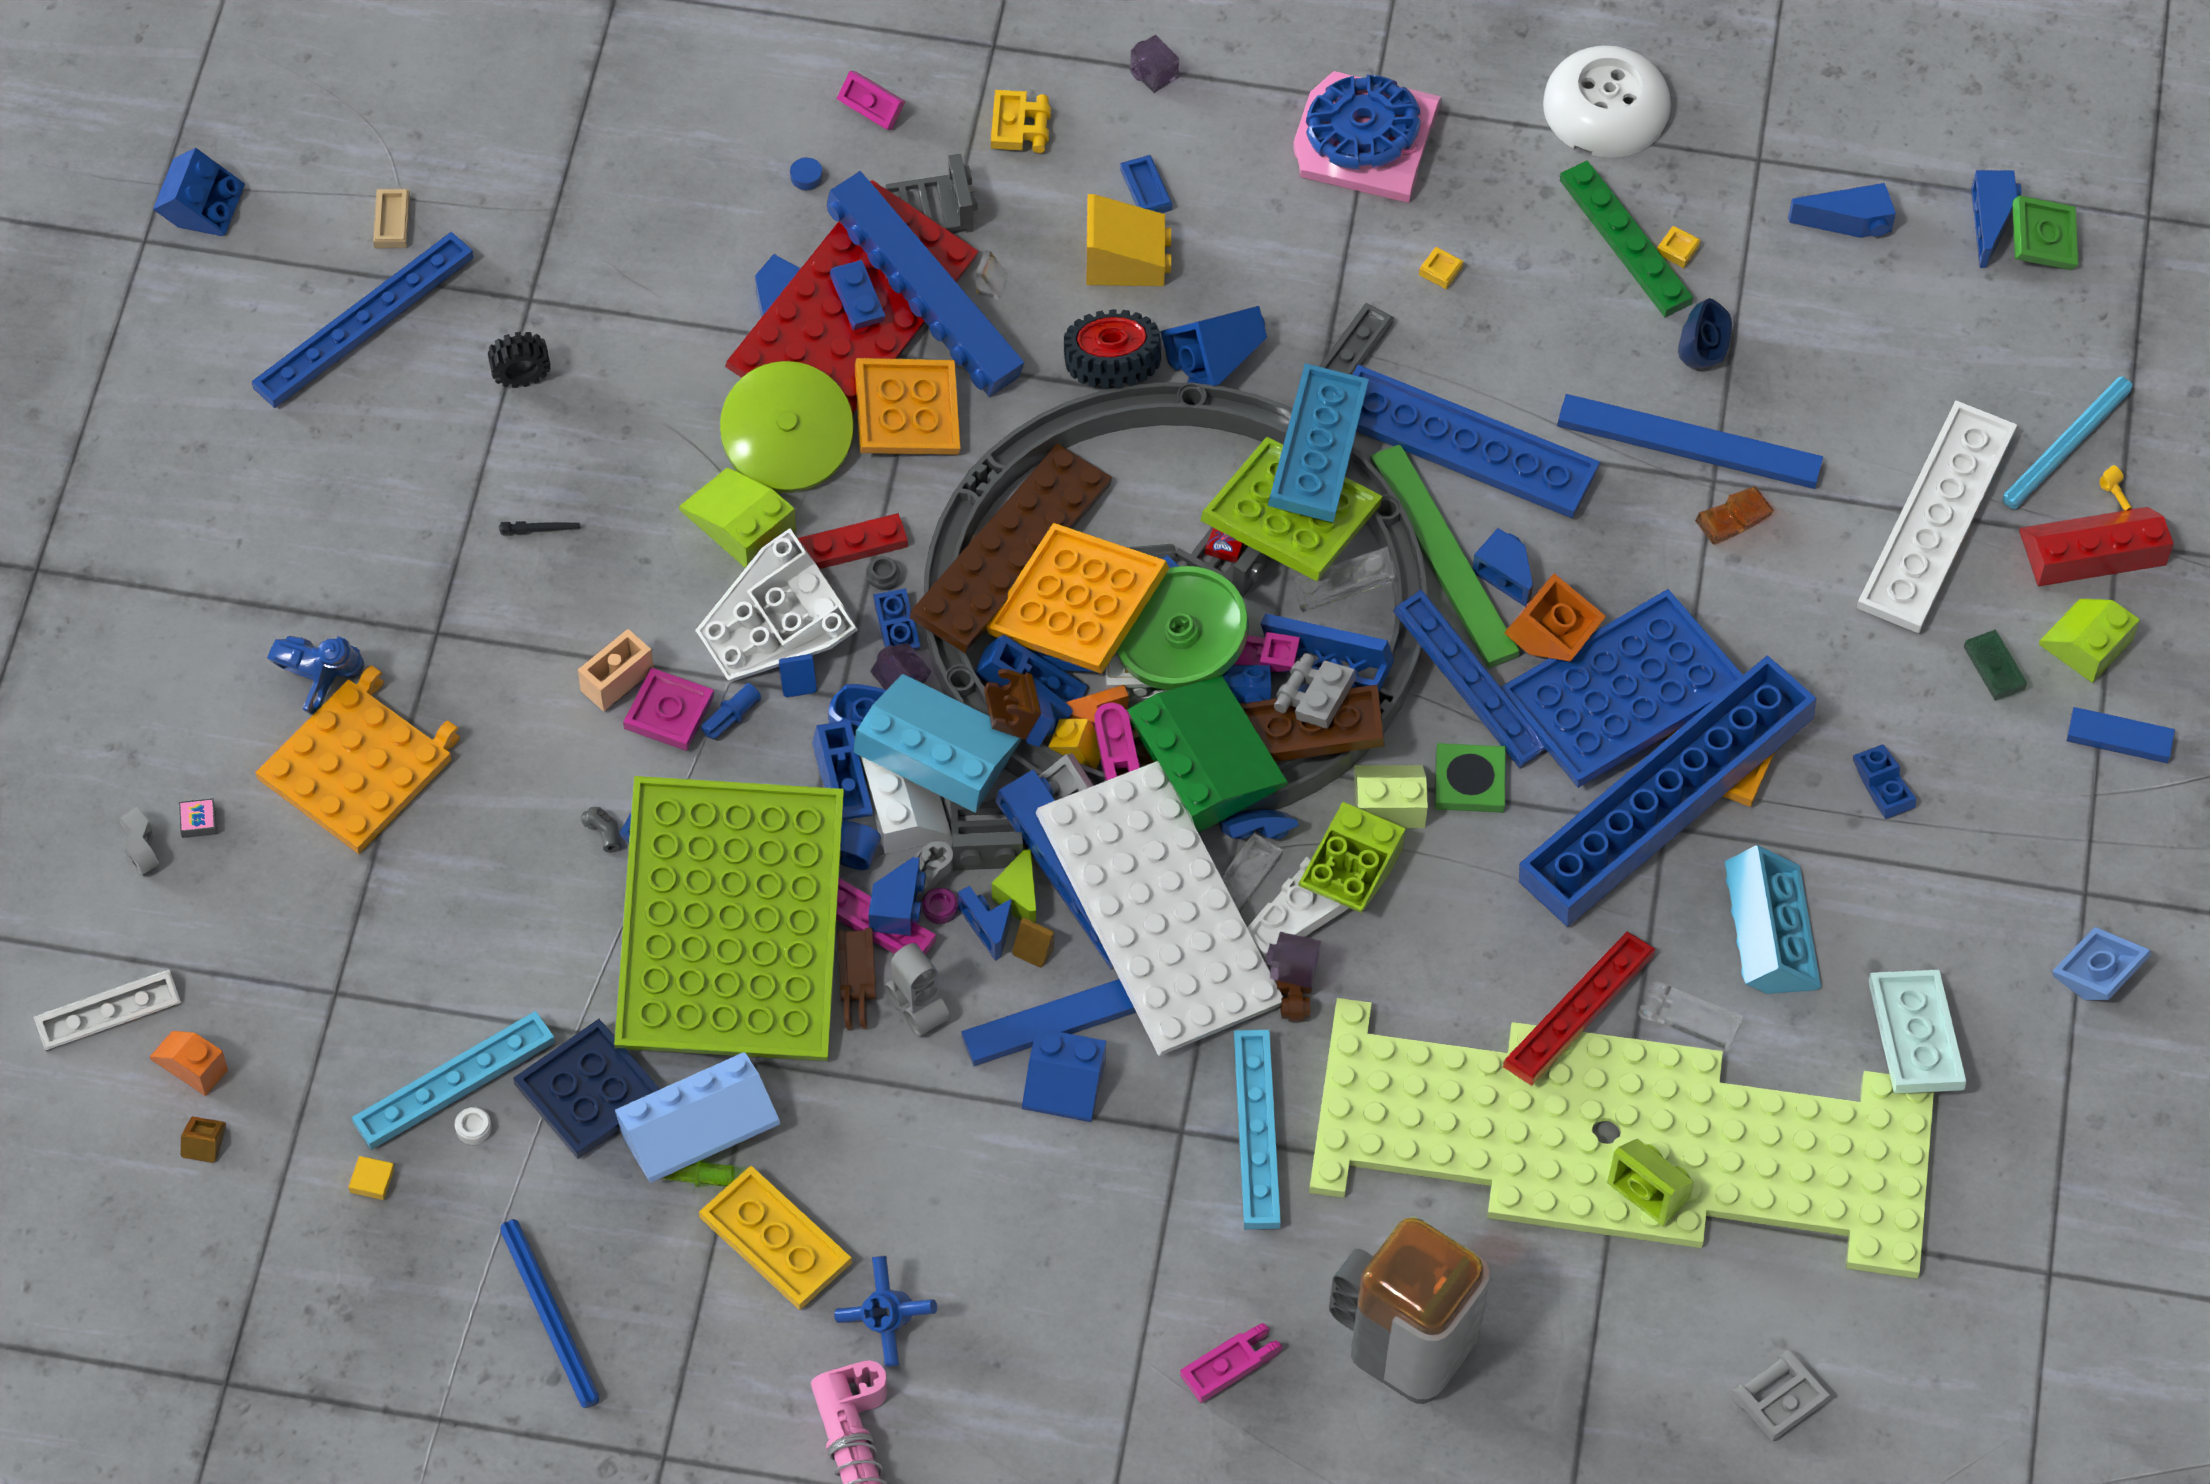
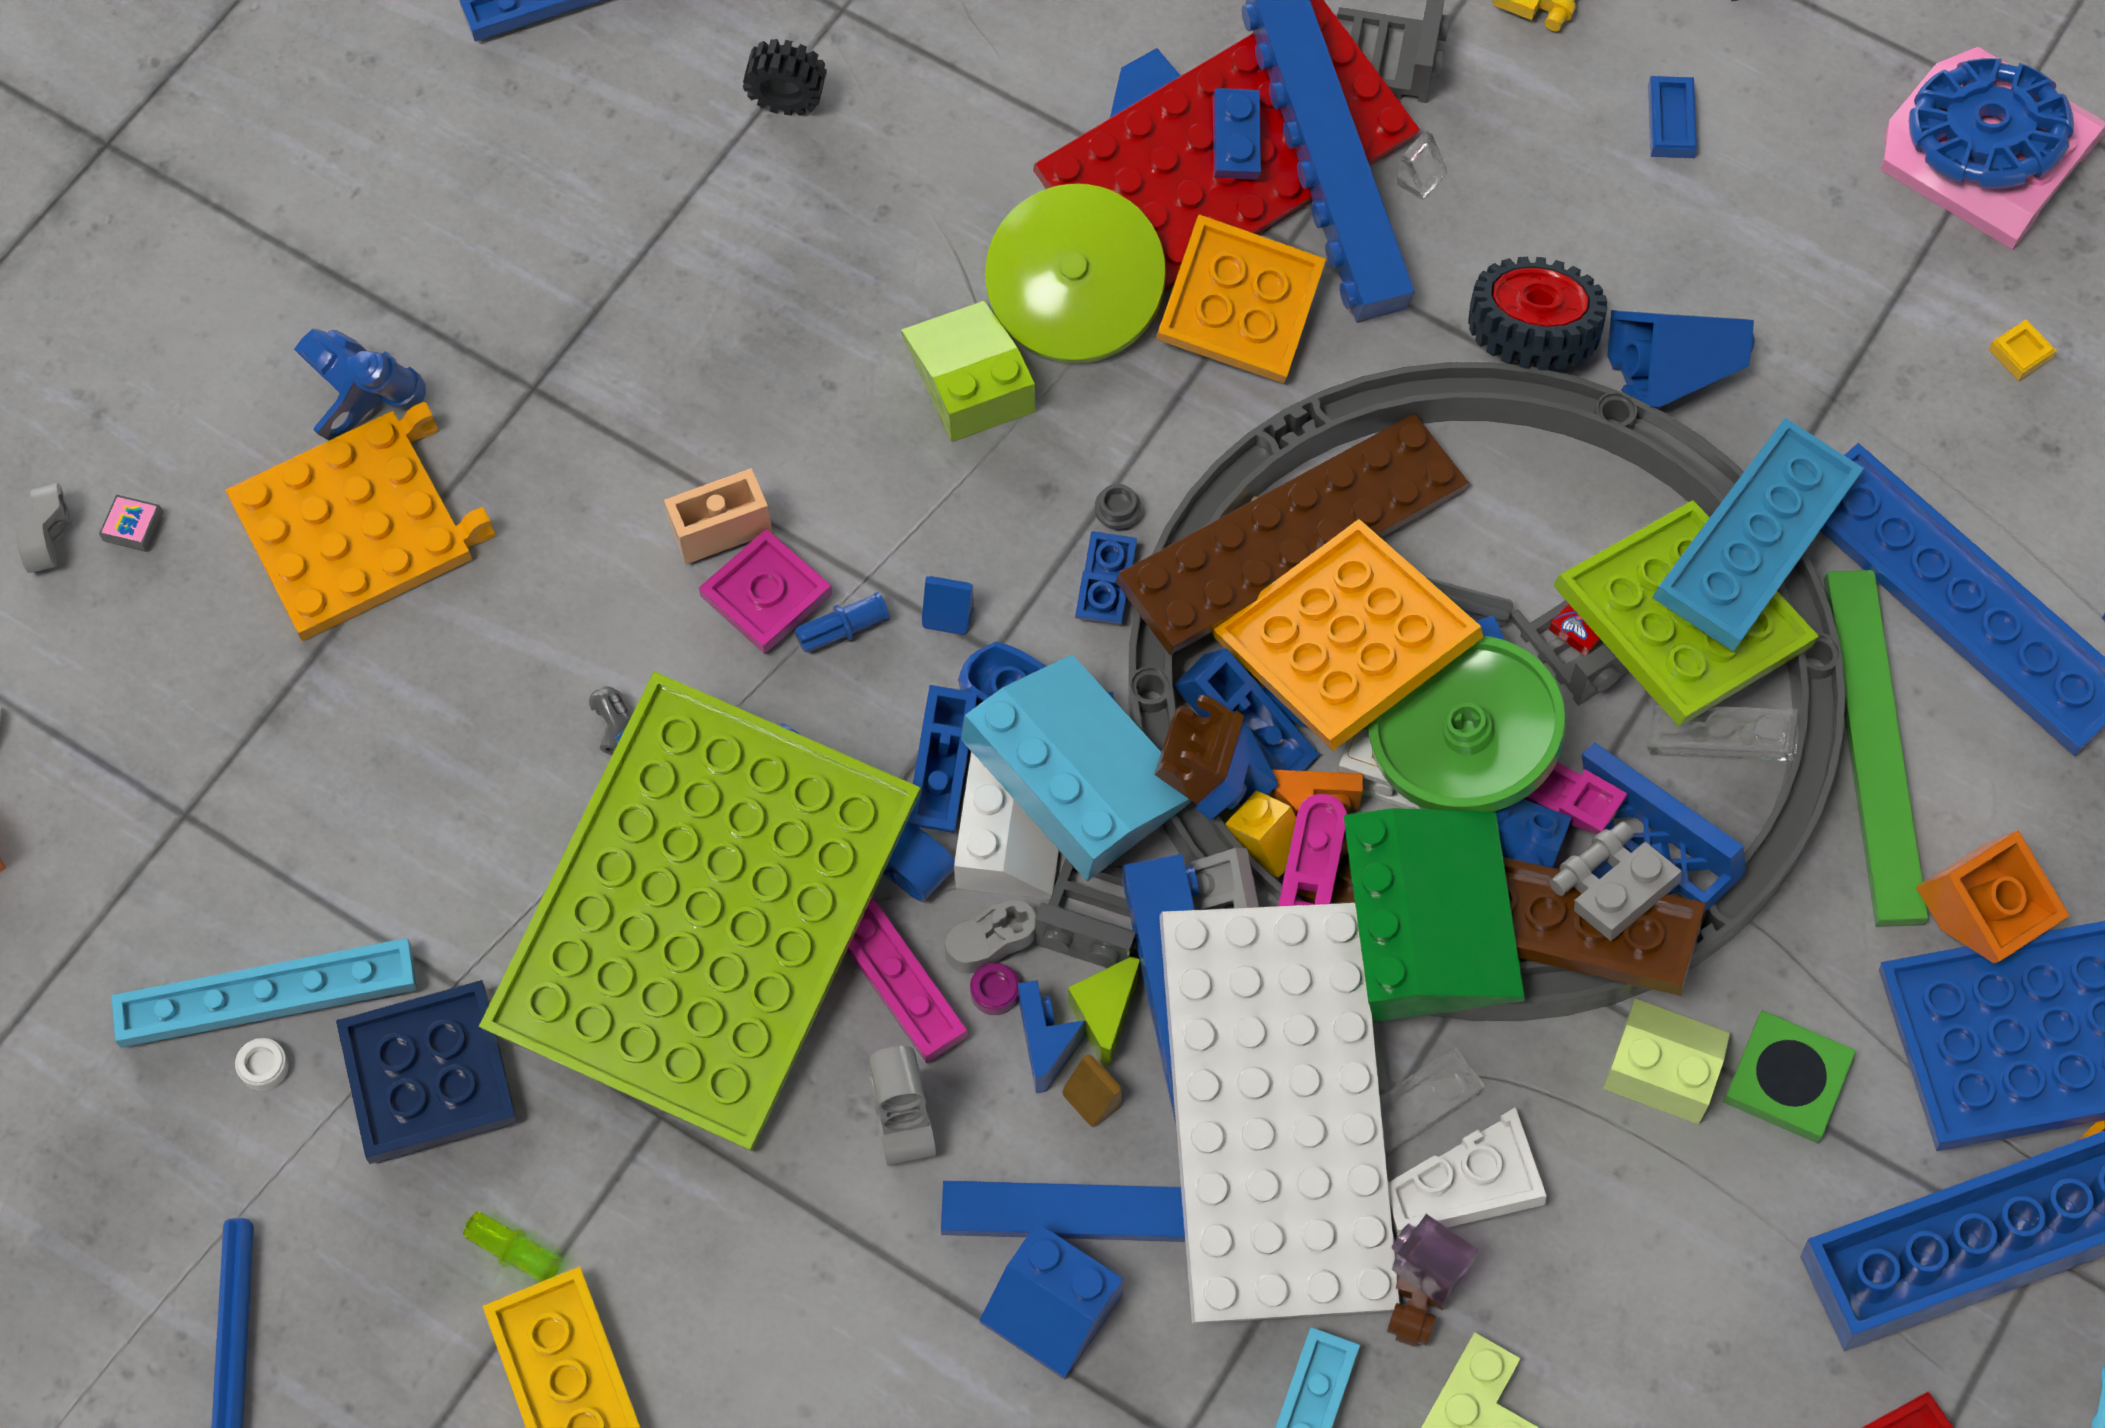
camera: 25 degrees right, 5 degrees up
(371, 1178) = (102, 1086): yellow tile -> none
(522, 527) = (698, 291): black piece -> none
(697, 1117) = (537, 1171): light blue slope -> none
(775, 612) = (957, 511): white wedge -> none
(856, 541) = (1078, 451): red plate -> none
(856, 972) = (840, 1048): reddish brown arm -> none
(894, 899) = (929, 963): blue slope -> none
(899, 660) = (1085, 637): clear purple brick -> none
(1125, 244) = (1611, 181): yellow slope -> none
(1268, 823) = (1483, 1038): blue slope -> none
(1354, 857) = (1576, 1139): lime slope -> none
(1358, 340) = (1871, 410): dark grey tile -> none
(1469, 678) = (1842, 936): blue tile -> none
(1505, 566) = (1954, 790): blue slope -> none

